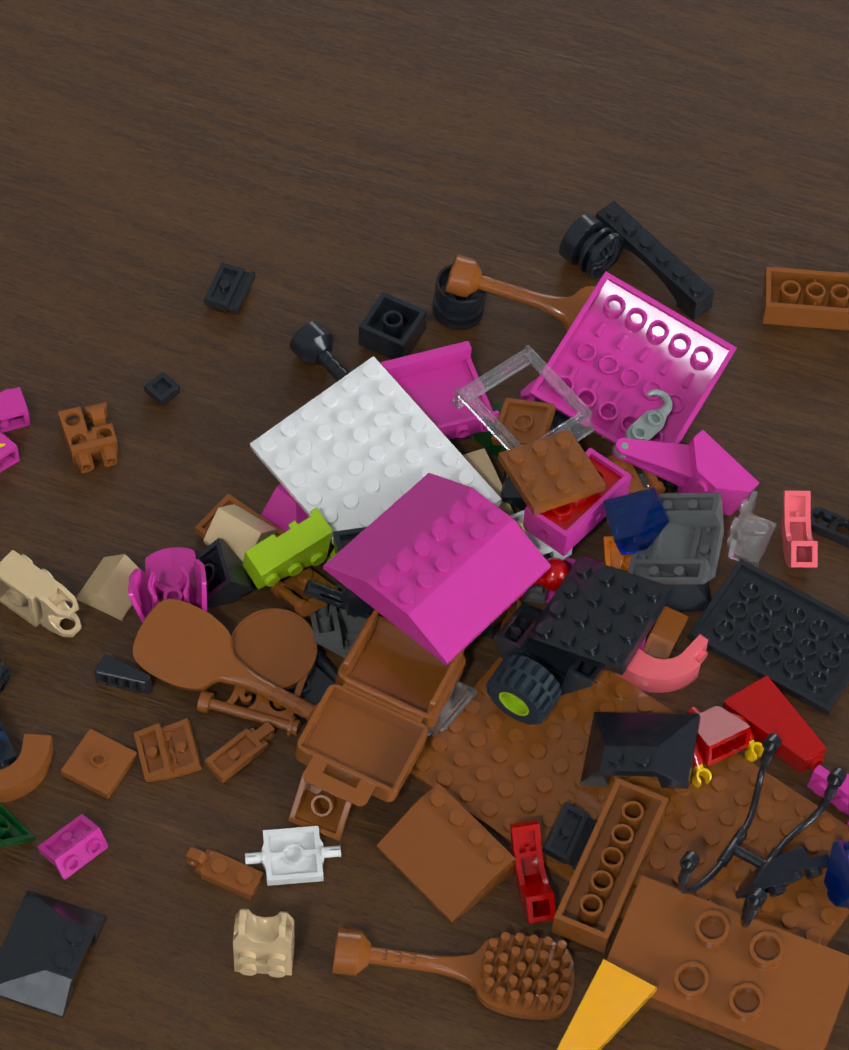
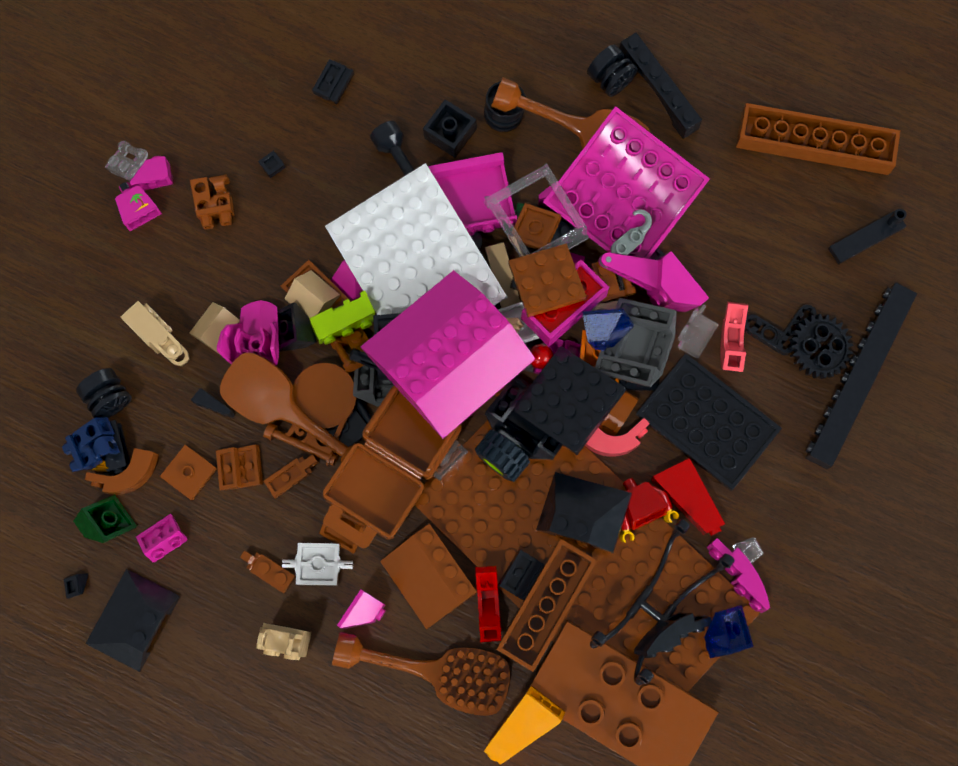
camera: 15 degrees right, 20 degrees up
(364, 900) = (362, 611): none -> slope

